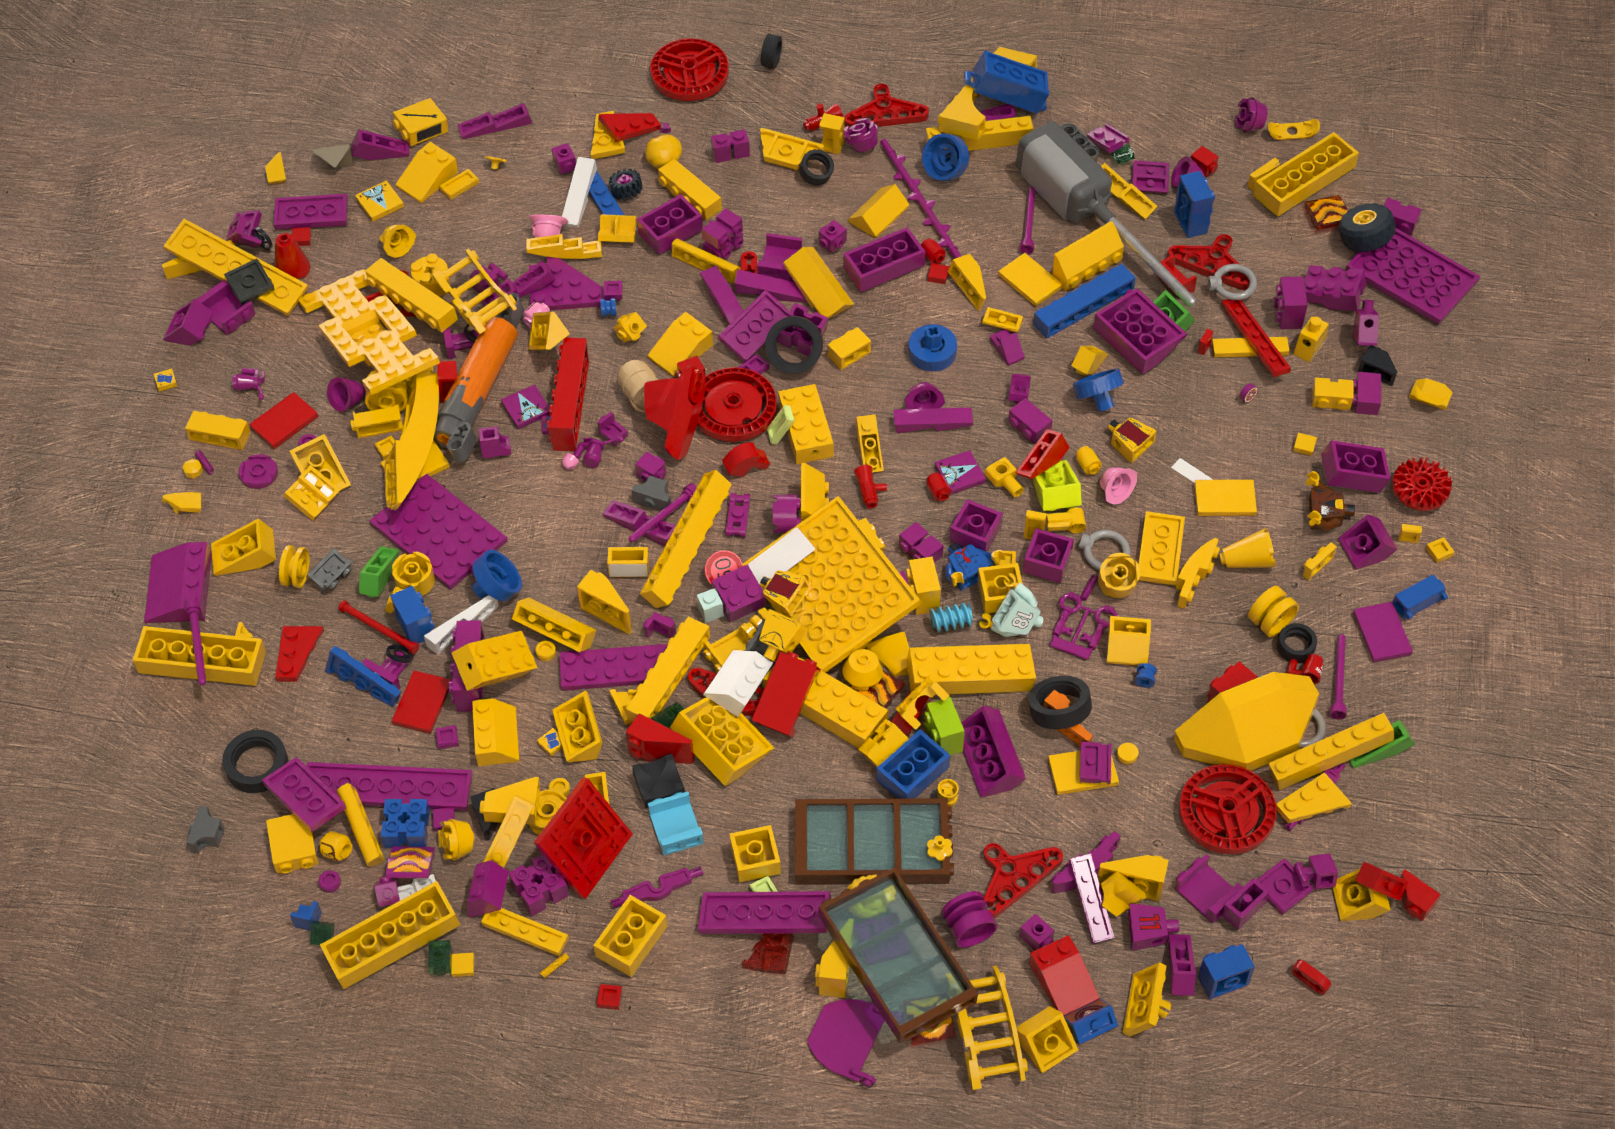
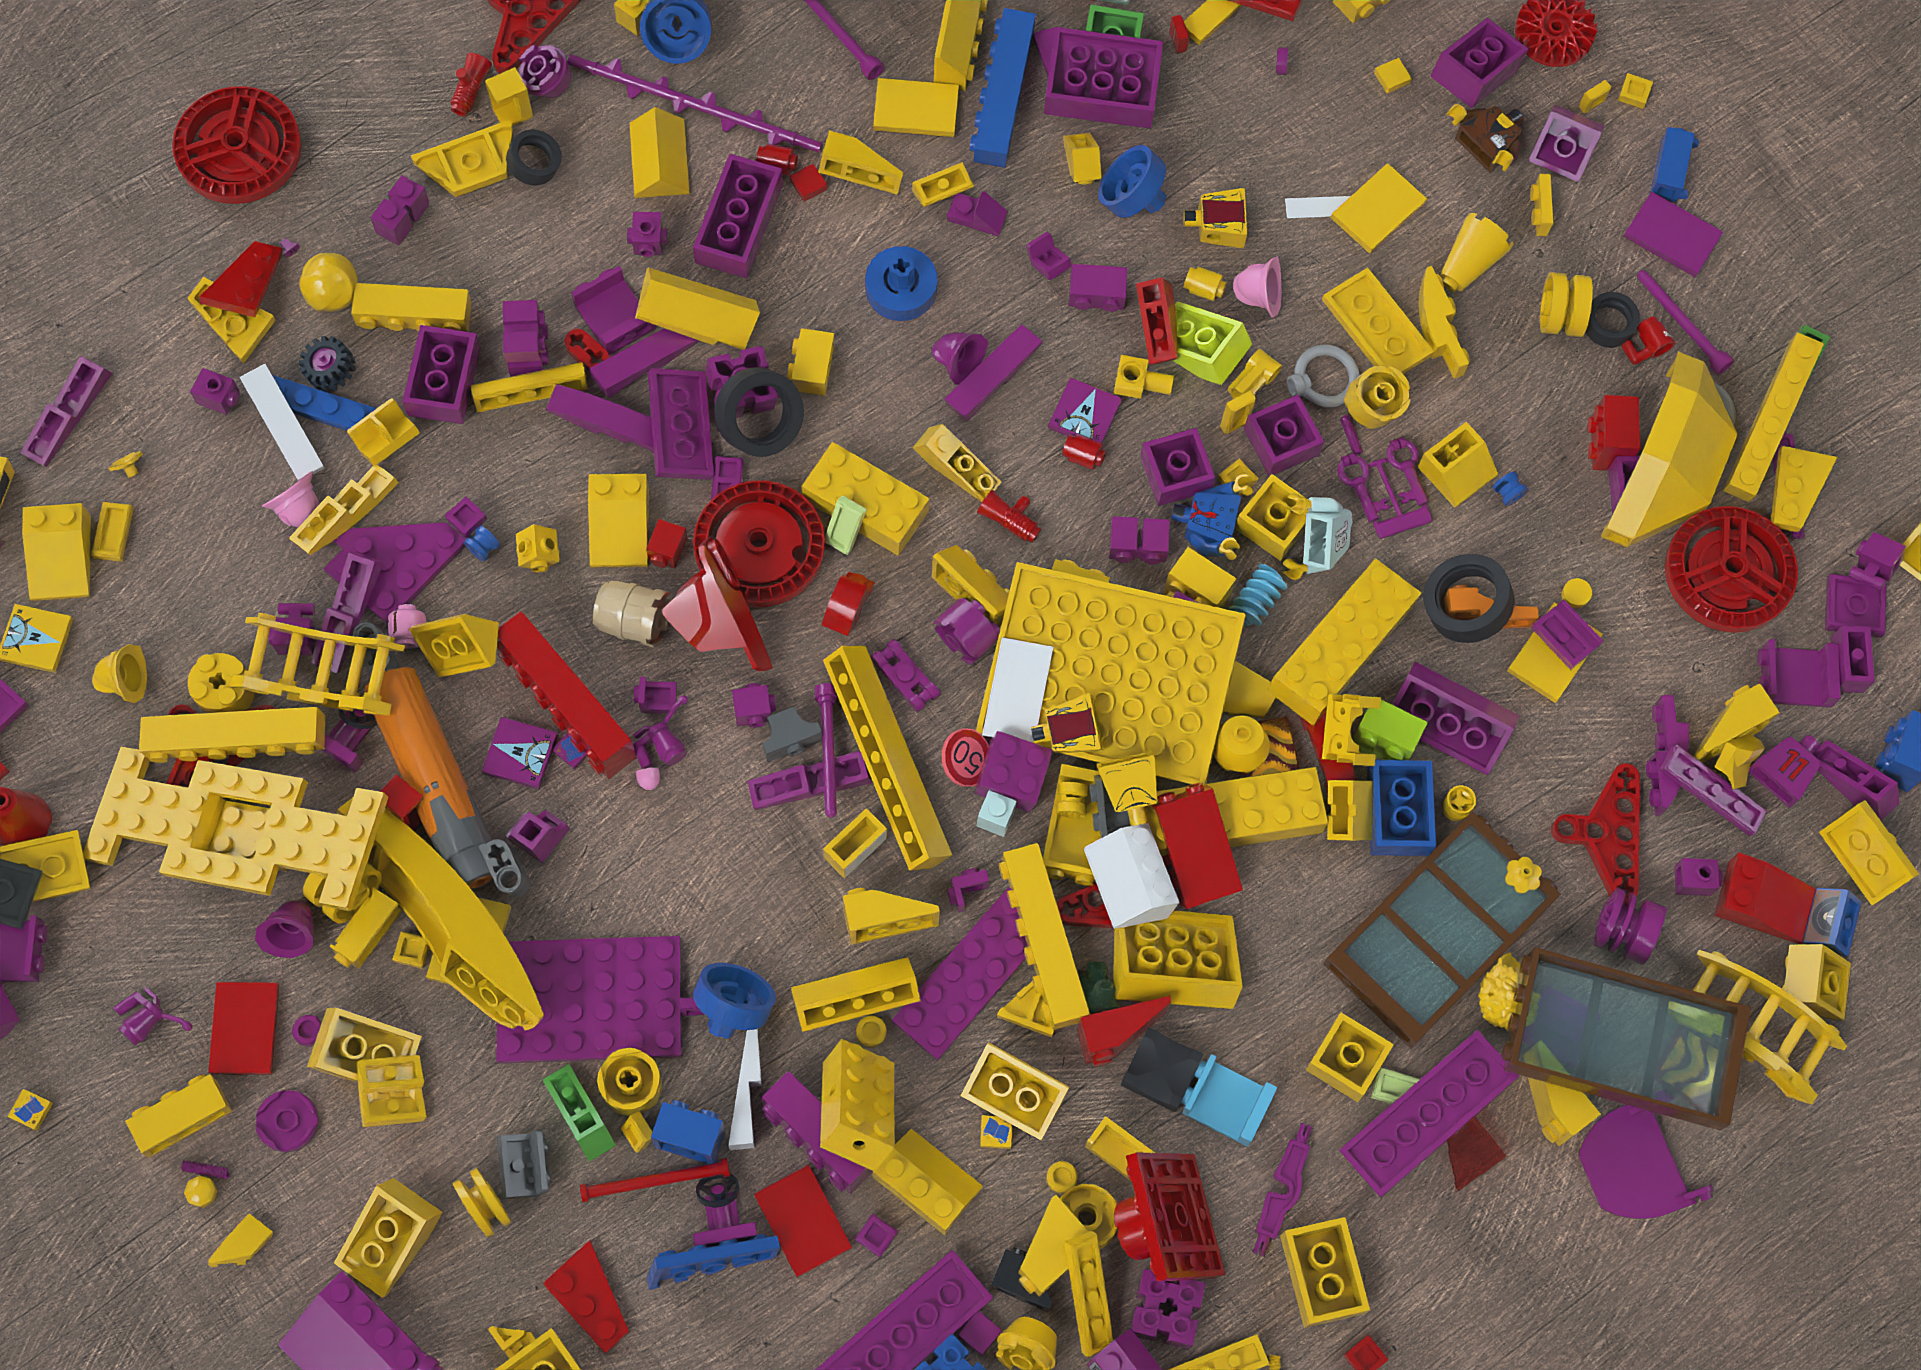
camera: 50 degrees left, 15 degrees up
(771, 51) = (316, 41): black tyre -> none

